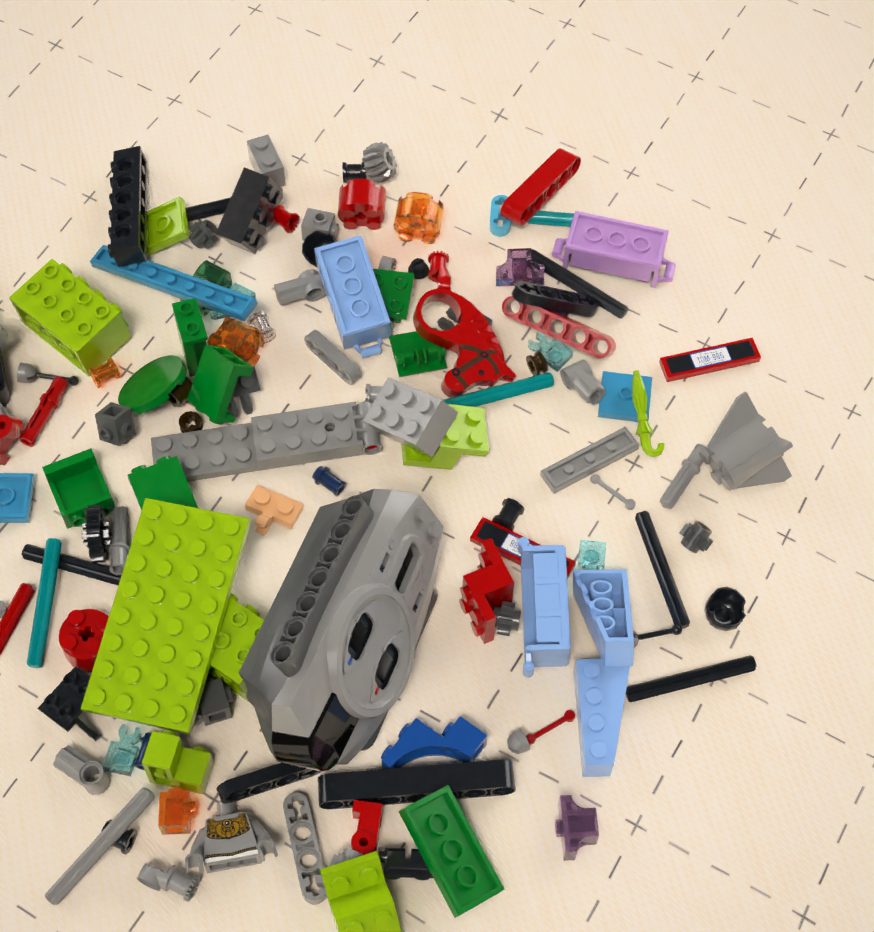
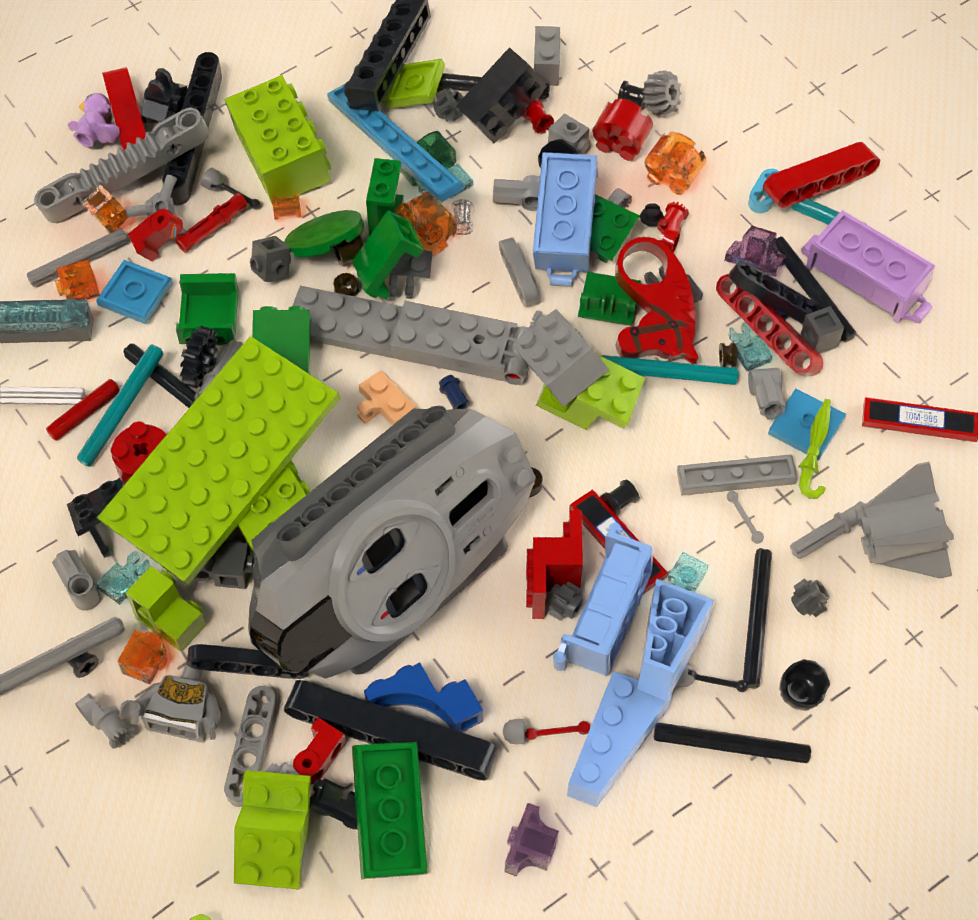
camera: 25 degrees right, 0 degrees up
(603, 314) = (822, 329): none -> dark grey brick

